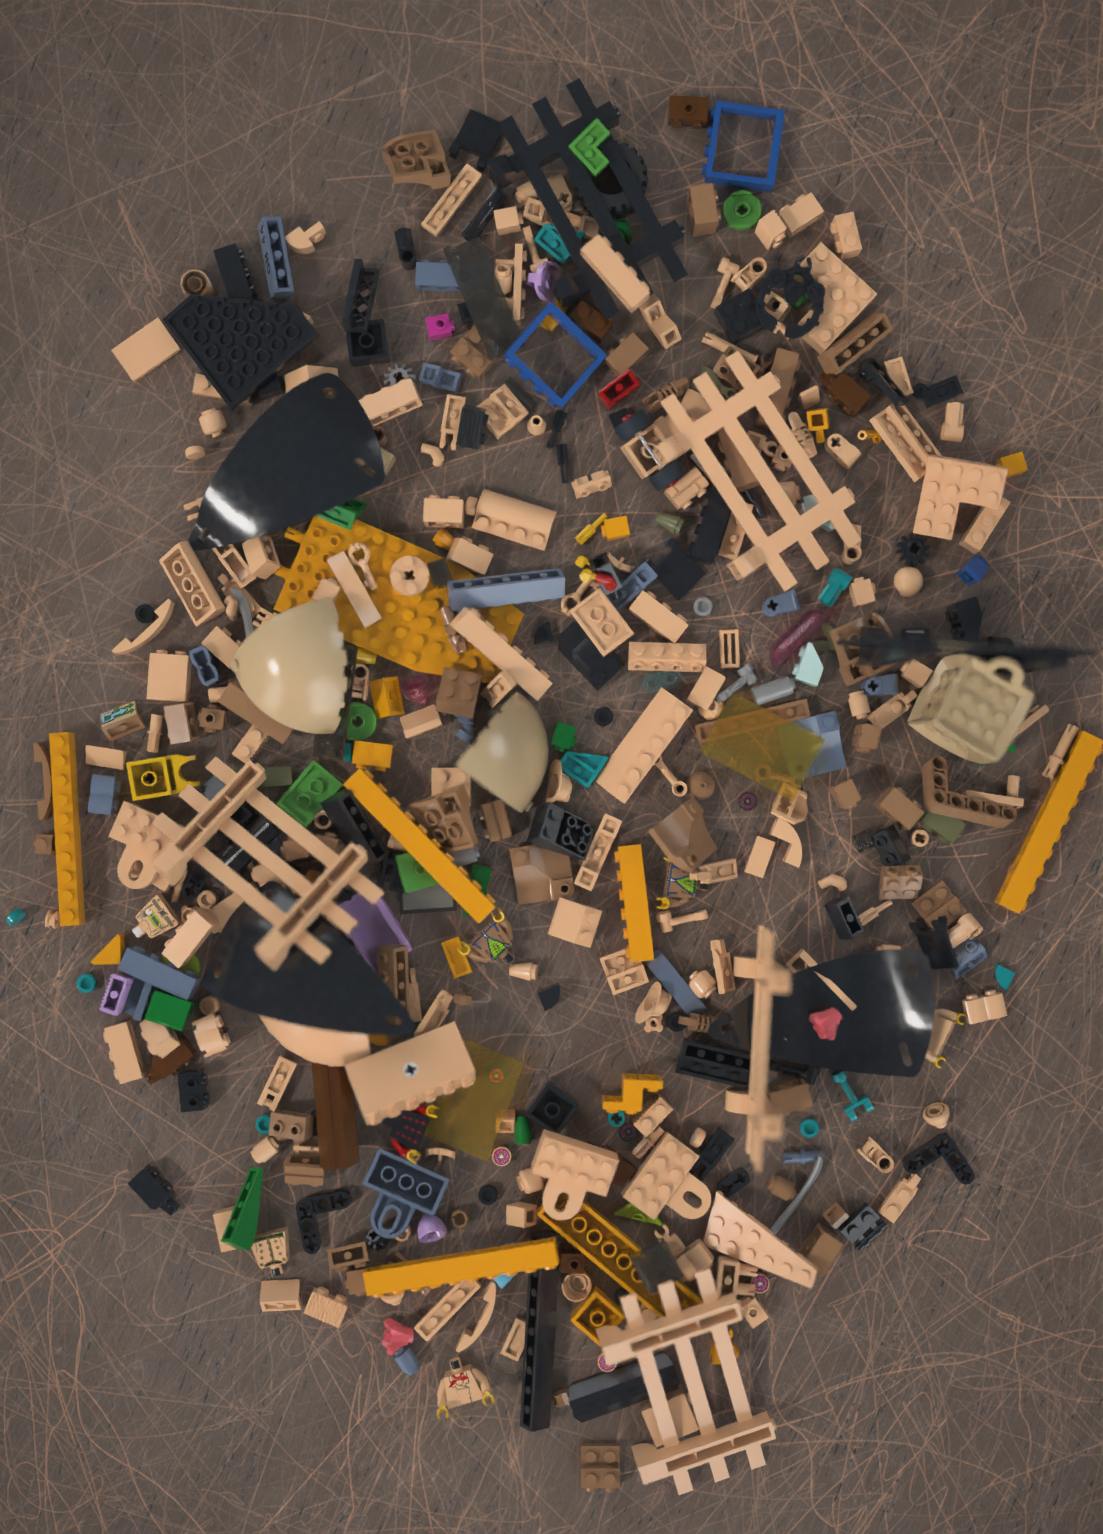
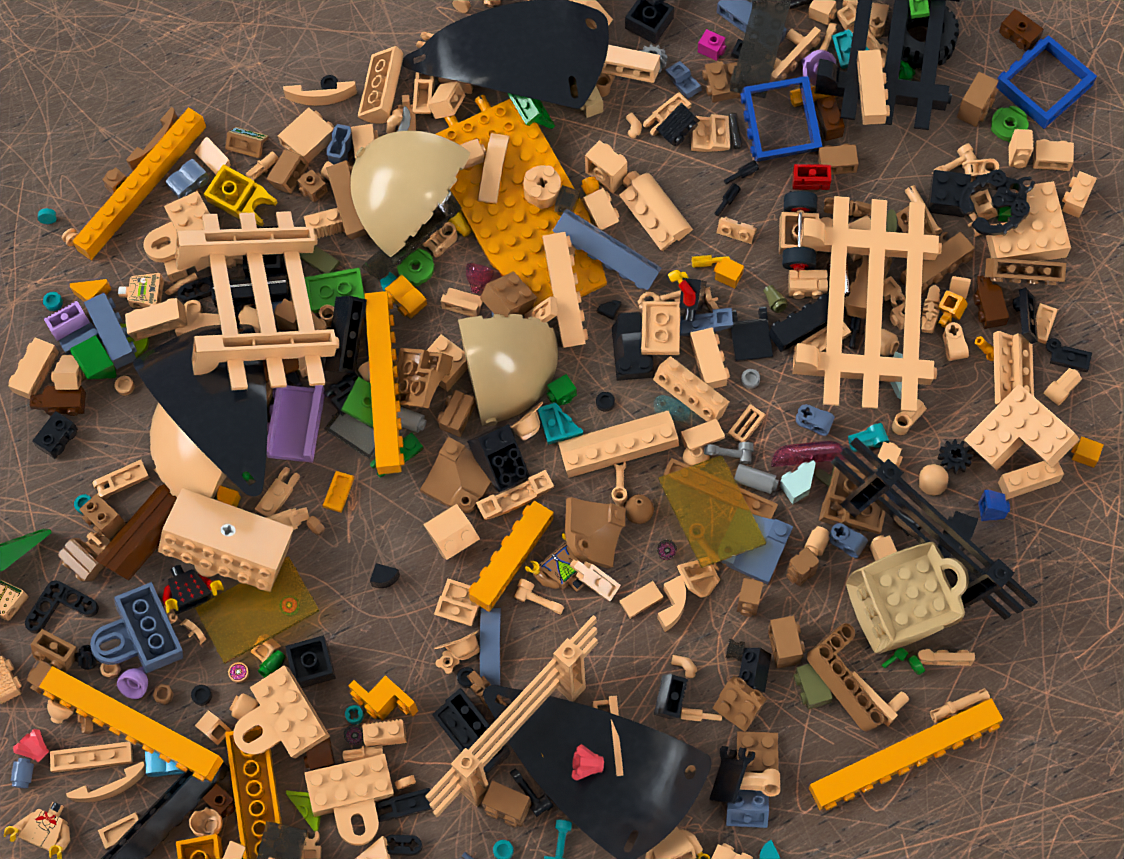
camera: 40 degrees right, 20 degrees down
(211, 1035) = (106, 402): light nougat brick -> none
(265, 1149) = (67, 521): light nougat brick -> none
(370, 581) = (510, 171): light nougat piece -> none
(386, 697) = (452, 265): light orange panel -> none
(394, 972) = (278, 464): medium nougat brick -> none
(455, 638) = (539, 258): medium nougat hinge -> none
(491, 941) = (375, 499): torso -> none
(504, 277) = (787, 44): light nougat brick -> none
(525, 971) = (382, 543): light nougat cone -> none
(536, 429) = (728, 159): light nougat cone -> none
(659, 323) = (882, 153): light nougat brick -> none
(702, 984) = (512, 661): light nougat head -> none
(722, 966) = (540, 658): light nougat hinge -> none
(891, 709) = (838, 566): light nougat hinge -> none
(920, 832) = (790, 682): light nougat bush -> none

